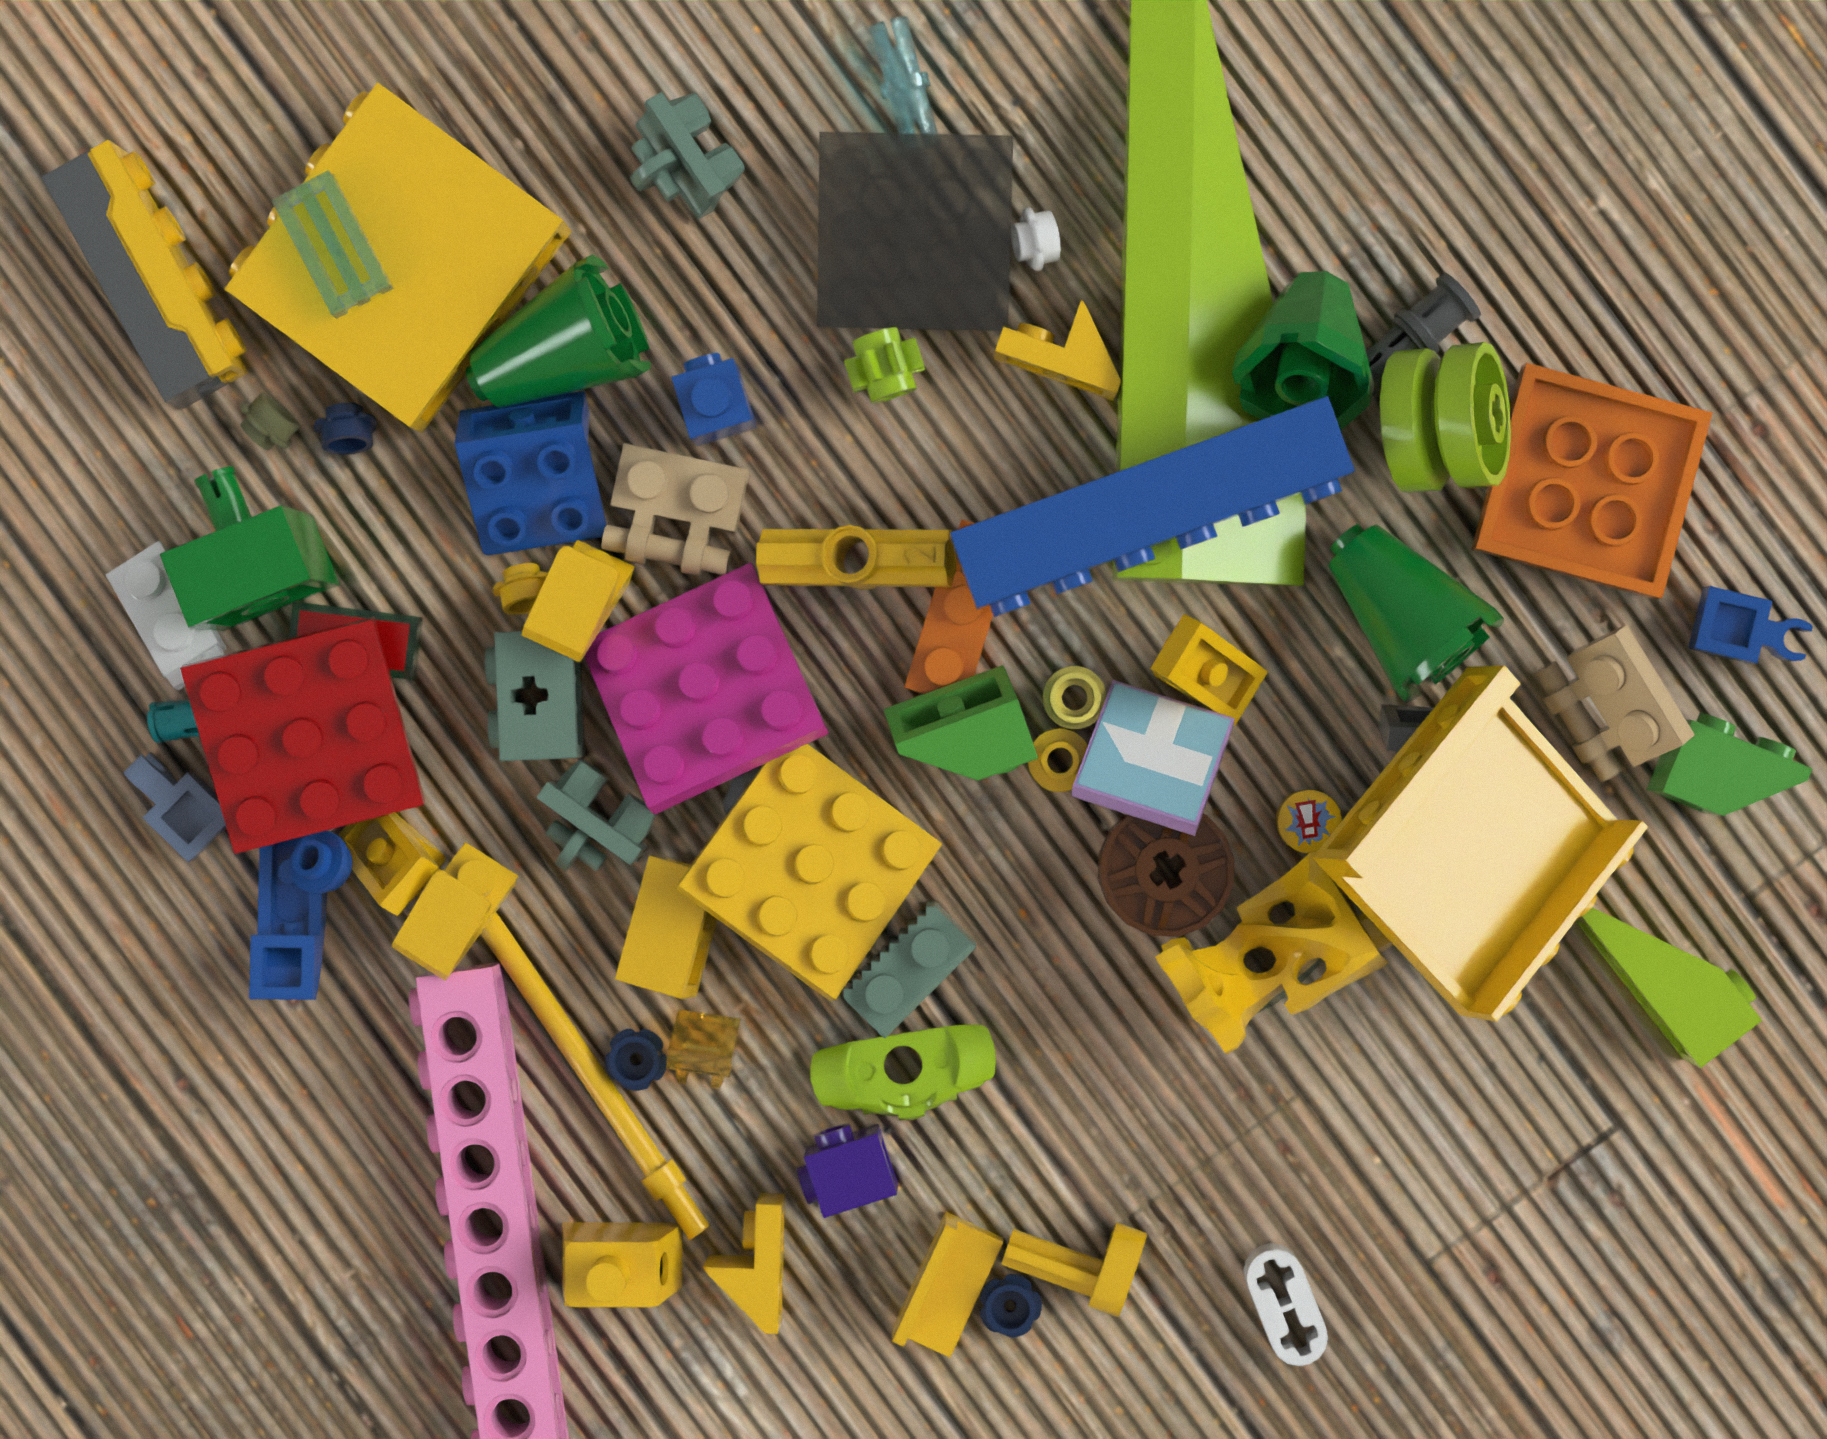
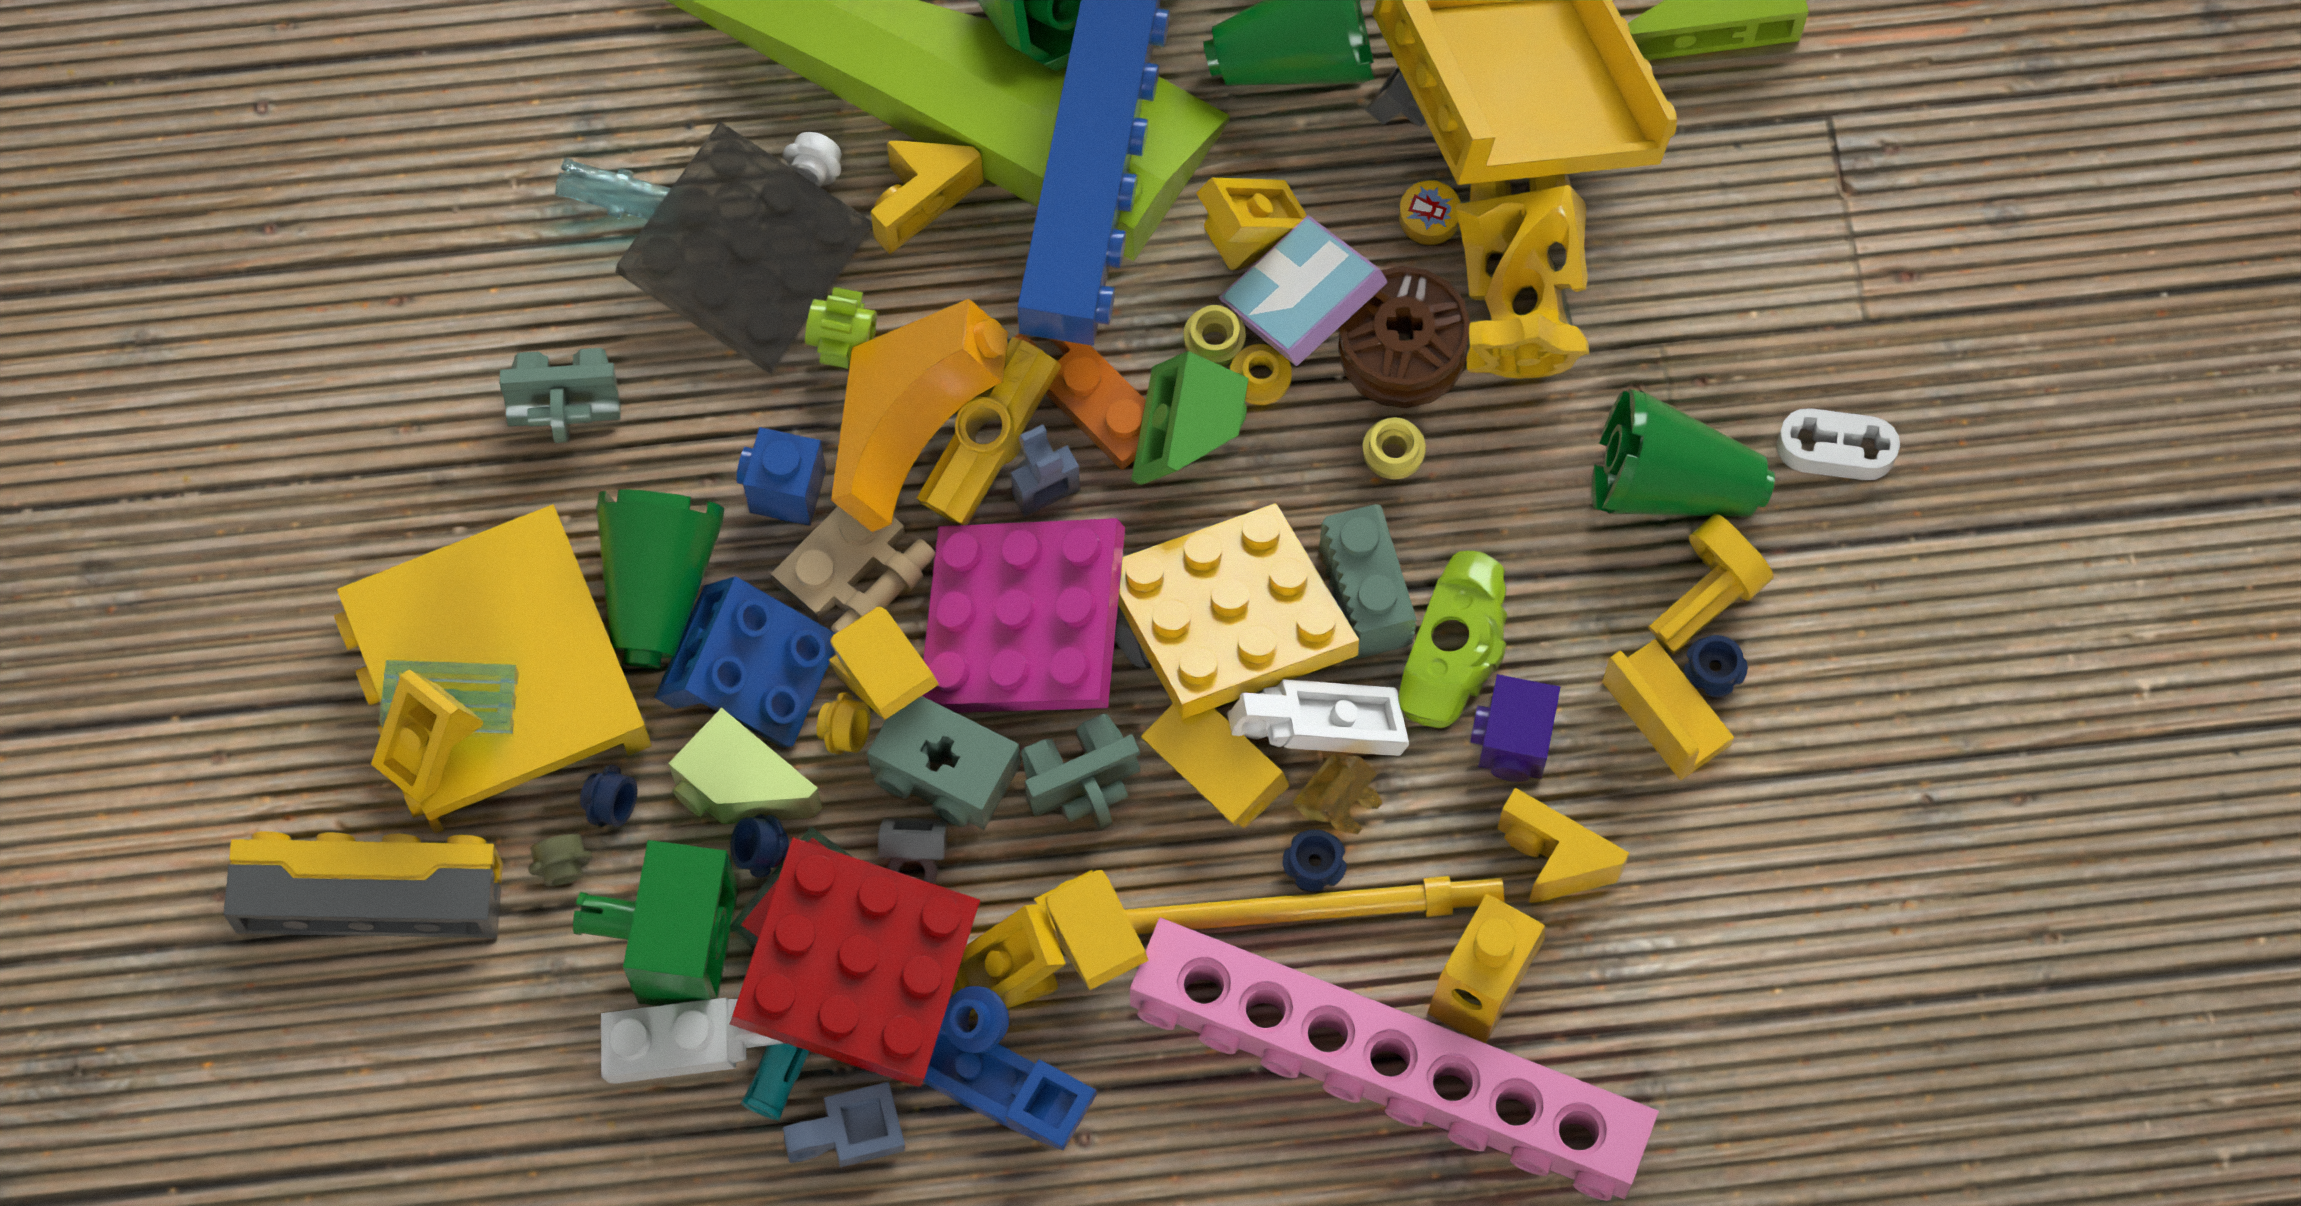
camera: 60 degrees left, 20 degrees down
(277, 250) = (420, 734): none -> yellow slope
(376, 583) = (759, 844): none -> dark blue plate
(424, 530) = (739, 776): none -> yellowish green slope
(451, 712) = (913, 841): none -> dark grey tile
(757, 1003) = (1323, 717): none -> white hinge
(834, 464) = (900, 397): none -> light orange arch
(846, 627) = (1043, 473): none -> sand blue plate
(1056, 937) = (1398, 432): none -> light yellow plate
(1169, 1177) = (1674, 465): none -> green cone

